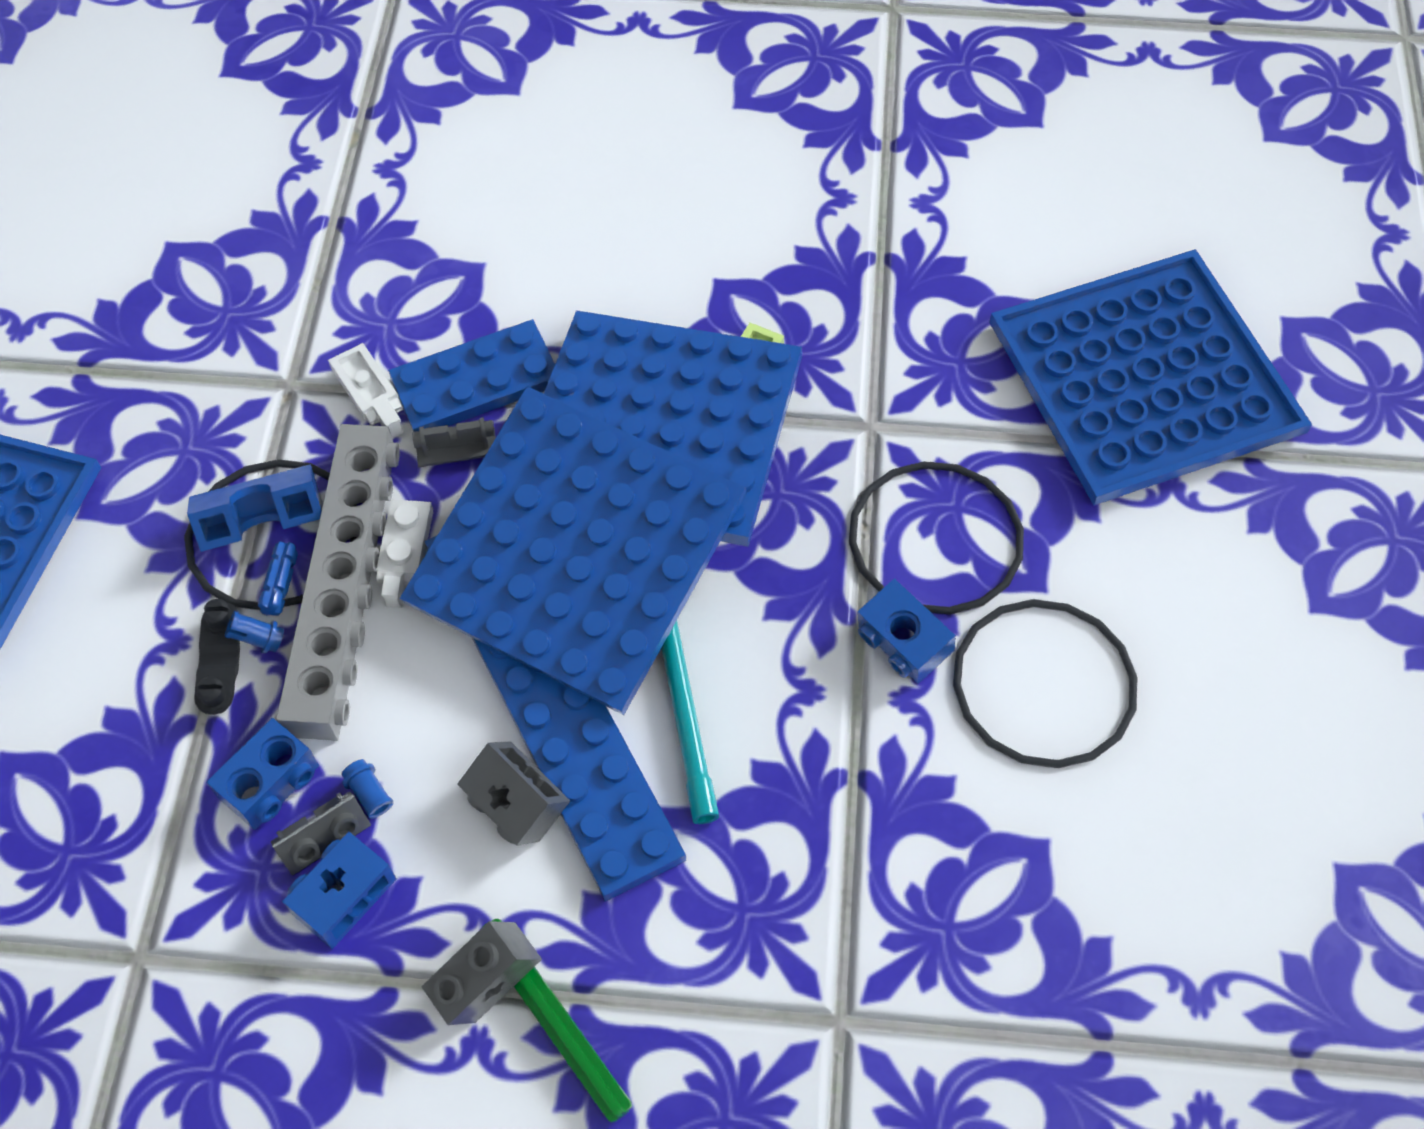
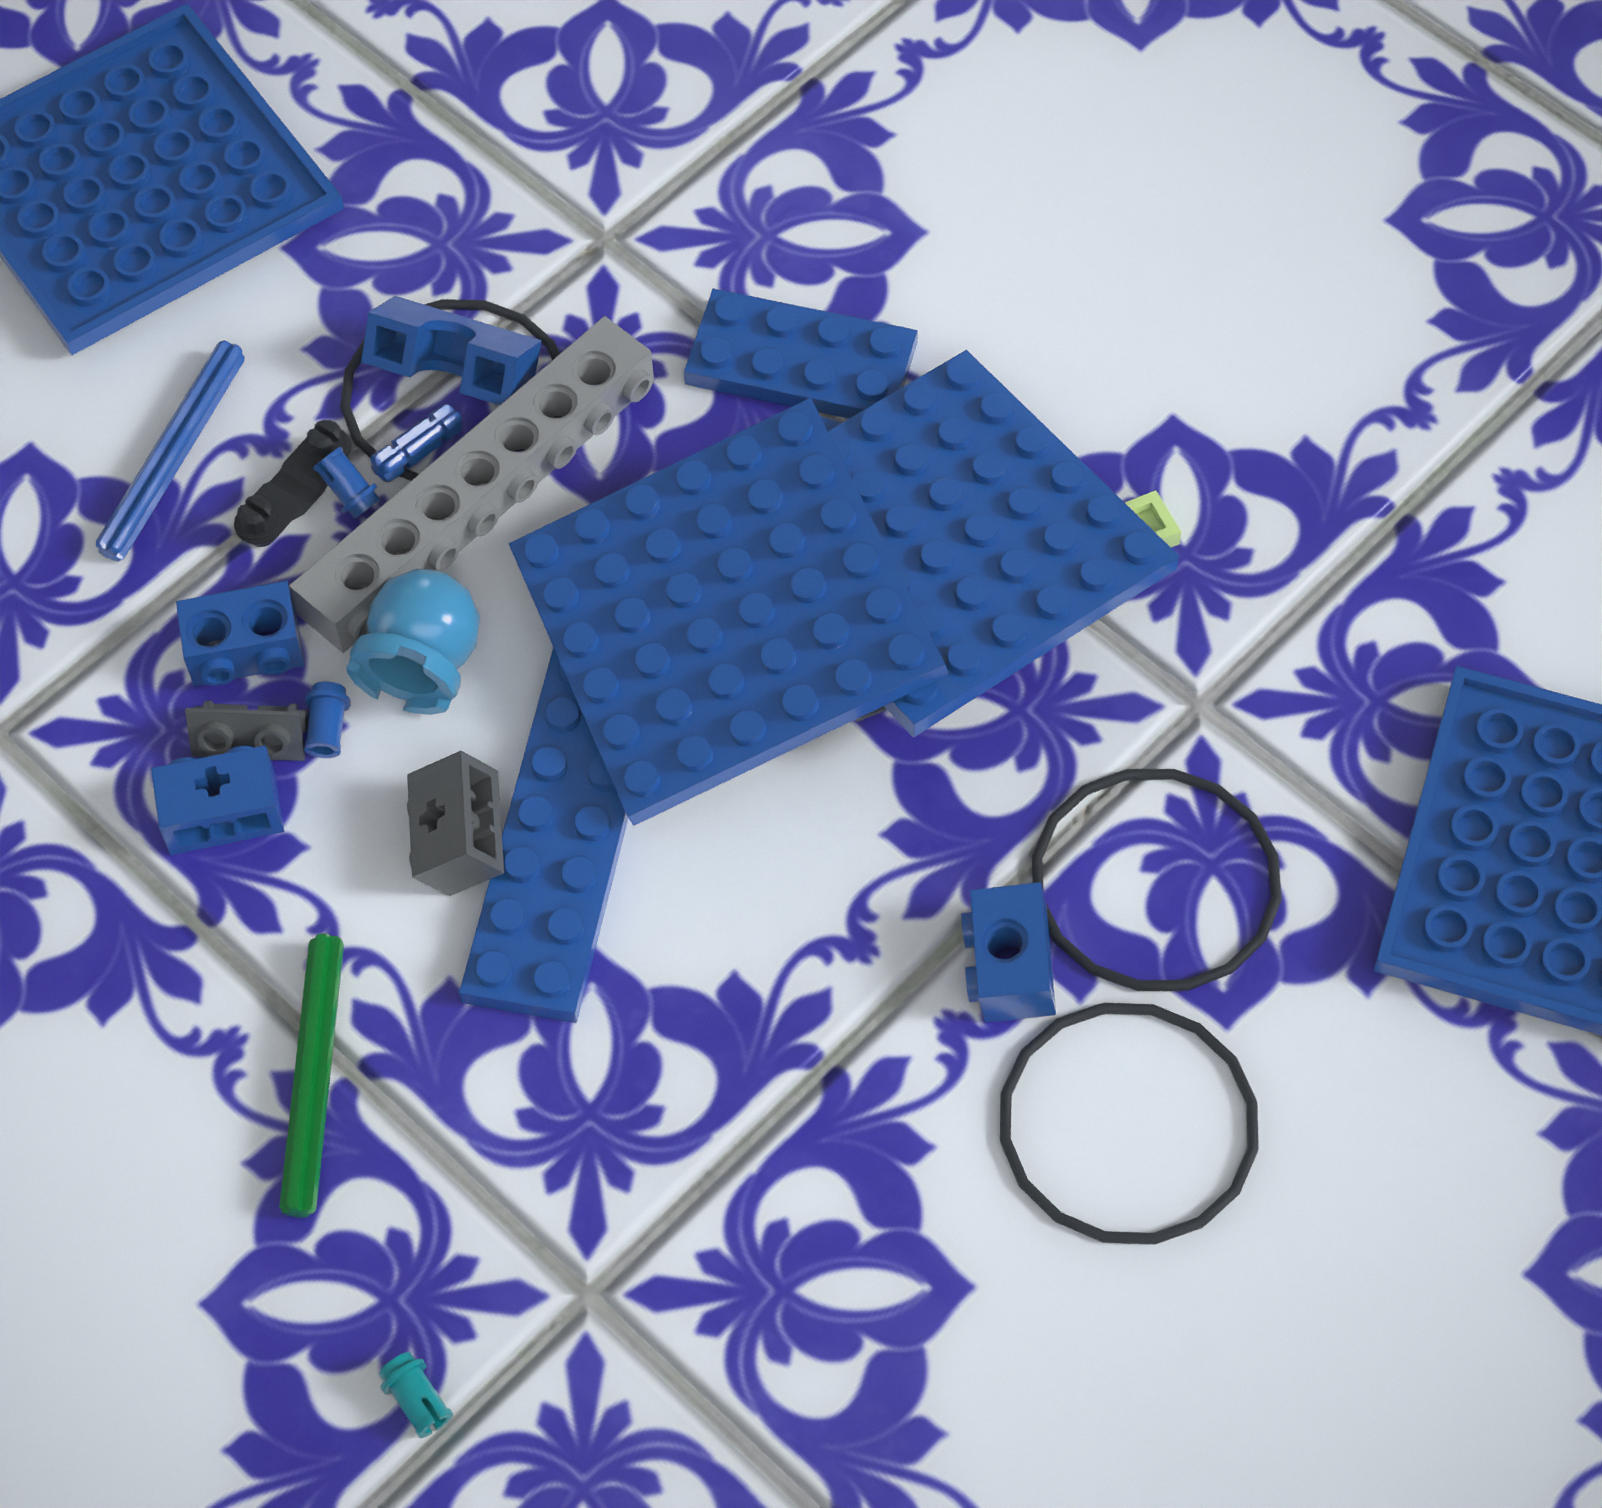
camera: 40 degrees right, 0 degrees up
(110, 693) = (170, 451): none -> axle
(368, 388) = (675, 296): white hinge -> none
(392, 697) = (416, 641): none -> dark azure tile
(402, 547) = (579, 481): white hinge -> none
(454, 443) = (706, 411): dark grey hinge -> none
(481, 973) = (273, 973): dark grey brick -> none
(698, 784) = (654, 951): teal piece -> none

